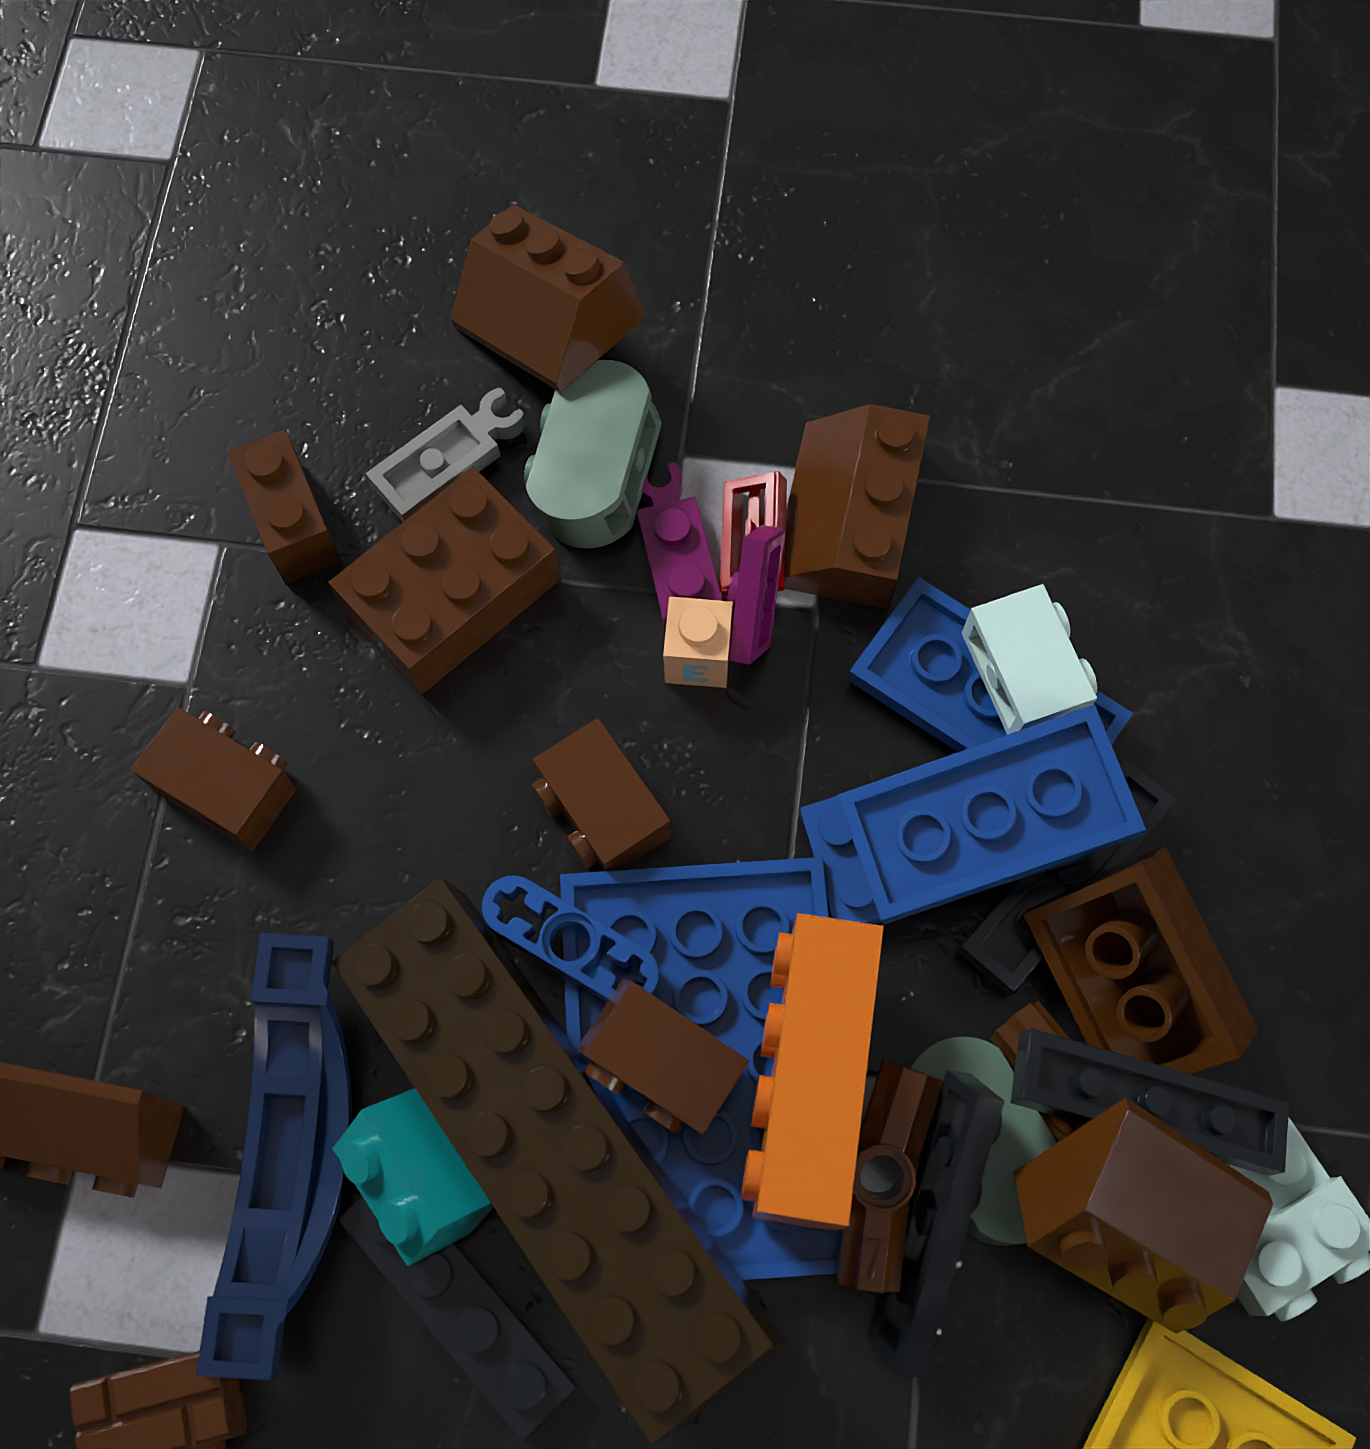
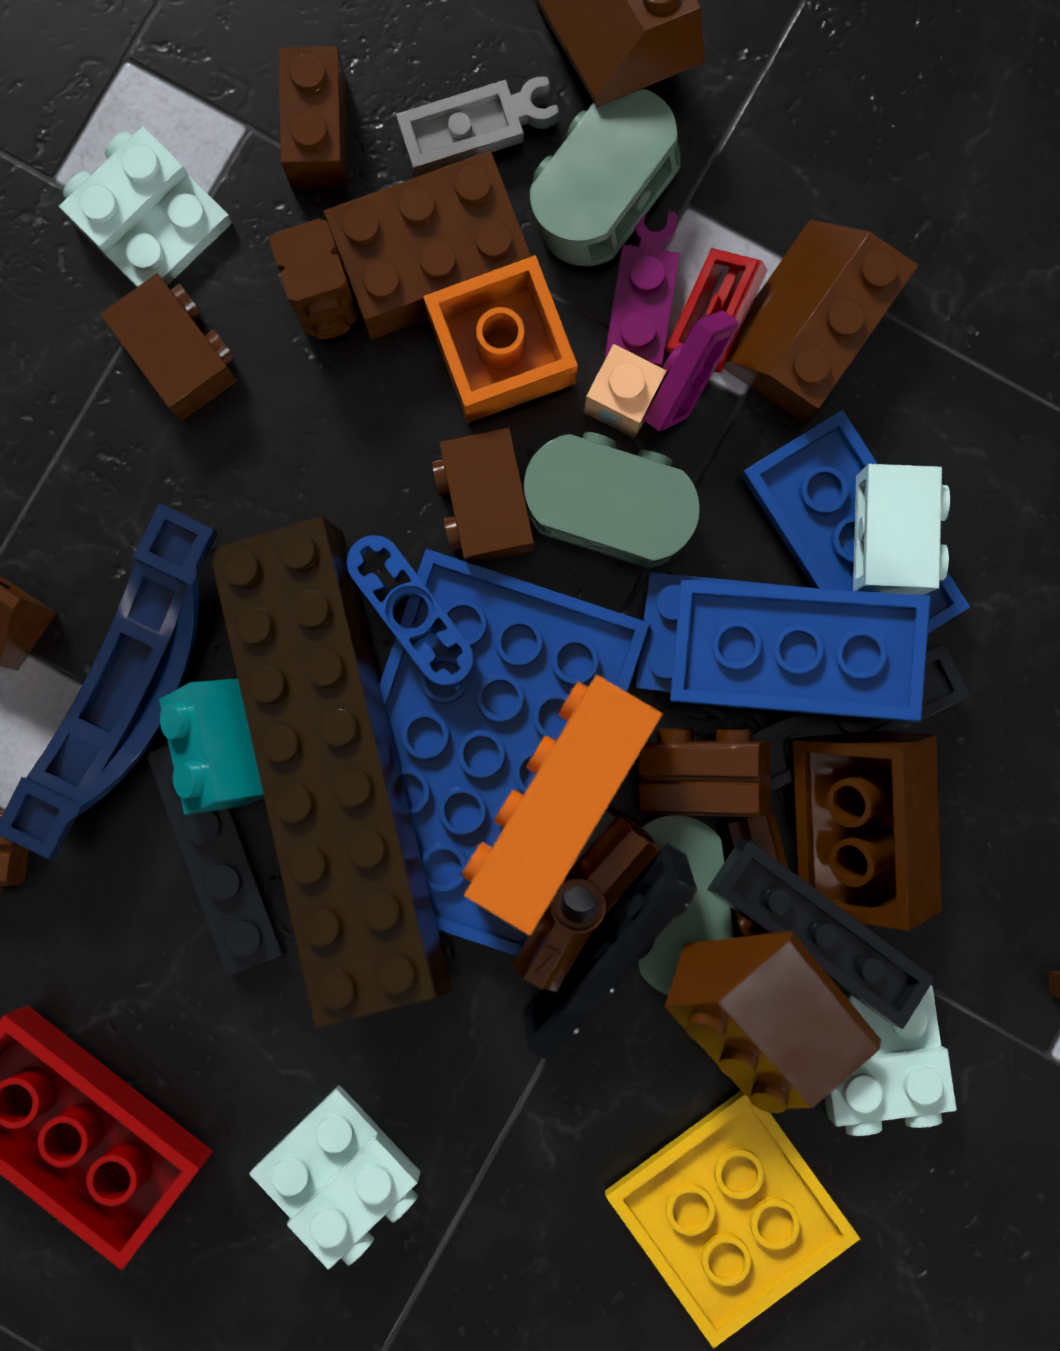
camera: 20 degrees right, 15 degrees up
(139, 656) = (143, 209): none -> light aqua plate
(343, 650) = (314, 279): none -> reddish brown brick
(554, 639) = (501, 339): none -> orange brick
(662, 1057) = (443, 738): reddish brown brick -> none
(730, 751) = (611, 499): none -> sand green brick
(950, 987) = (705, 775): none -> reddish brown brick

